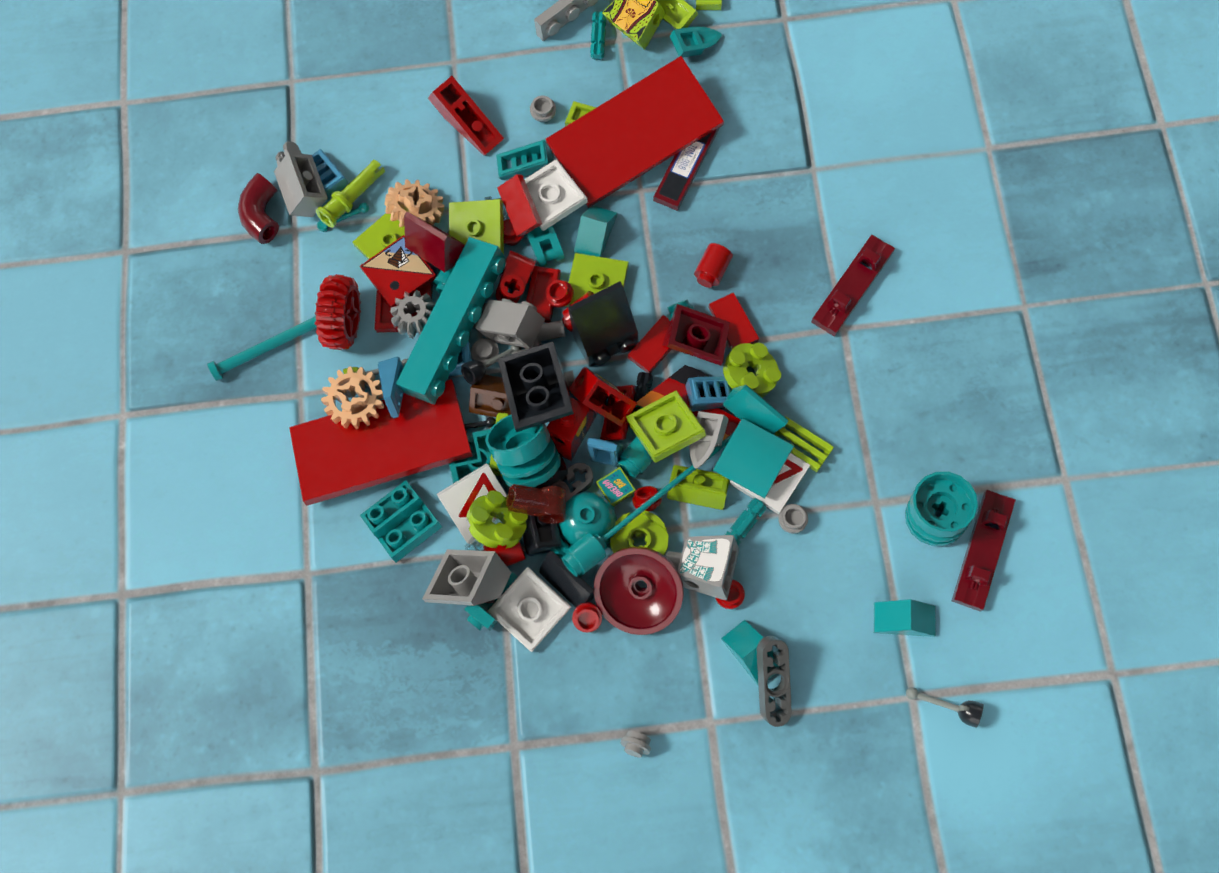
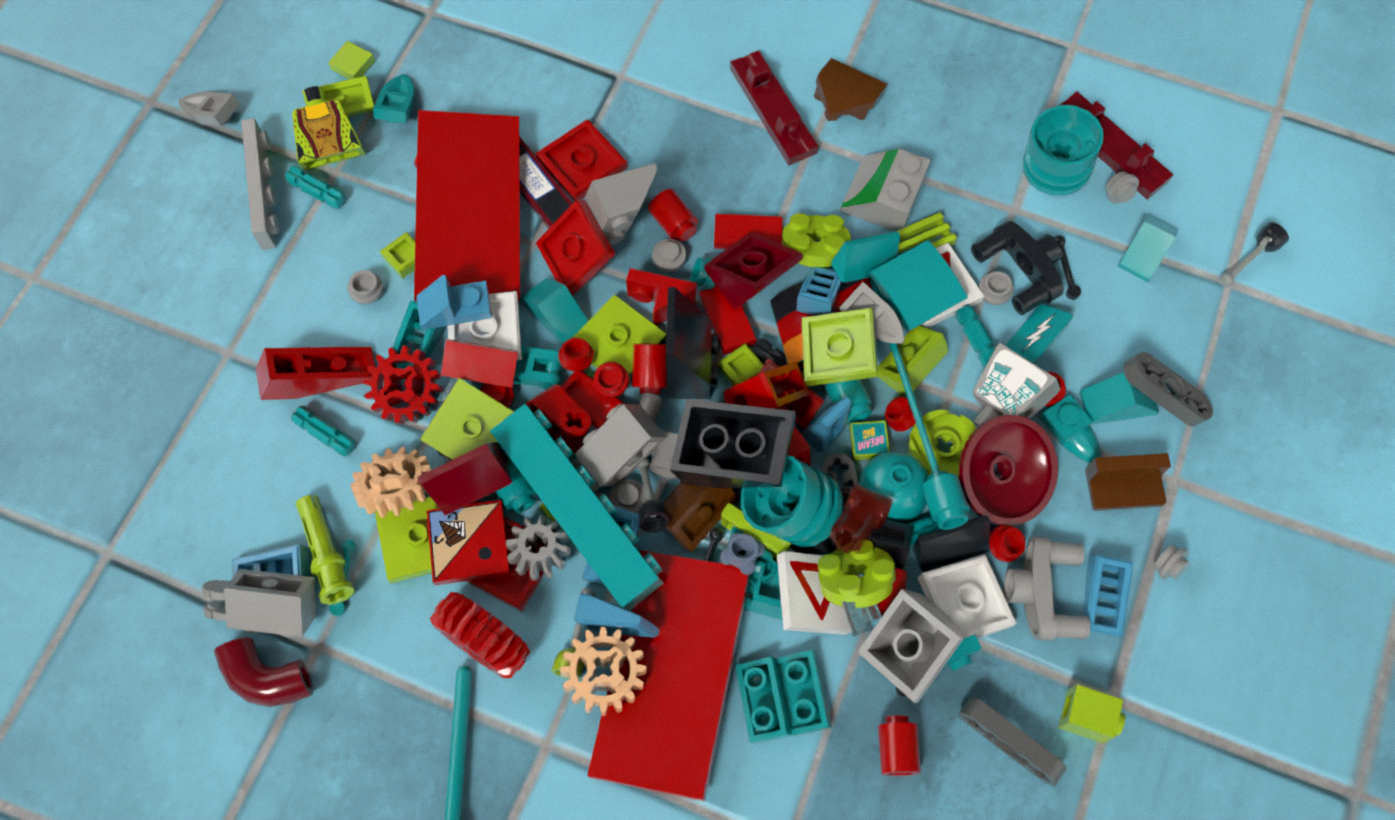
camera: 70 degrees left, 5 degrees down
(401, 611) = (899, 747): none -> red brick
(430, 146) = (323, 430): none -> teal axle
(443, 685) = (1012, 741): none -> dark grey beam
(473, 434) = (742, 542): none -> sand blue plate
(483, 171) = (392, 376): none -> red gear
(489, 732) = (1092, 714): none -> lime brick
(551, 165) = (446, 305): none -> dark azure slope
(561, 649) = (1034, 589): none -> light grey connector
(565, 262) = (576, 354): none -> red plate
(612, 699) = (1122, 586): none -> dark azure slope
(623, 372) = (740, 365): none -> lime tile
(644, 215) = (575, 247): none -> red tile
(644, 295) = (654, 287): none -> red slope
(681, 280) = (669, 255): none -> light grey plate
(684, 686) = (1127, 481): none -> reddish brown panel
(691, 222) = (618, 199): none -> light grey slope
(708, 628) = (1072, 428): none -> teal plate
(723, 183) = (580, 158): none -> red tile
(770, 567) = (1039, 332): none -> teal slope
(828, 578) = (1073, 291): none -> black hinge
(829, 399) = (886, 188): none -> light grey slope
(837, 534) = (1032, 256): none -> black connector
(901, 328) = (847, 91): none -> reddish brown slope
(943, 573) = (1121, 187): none -> light grey plate

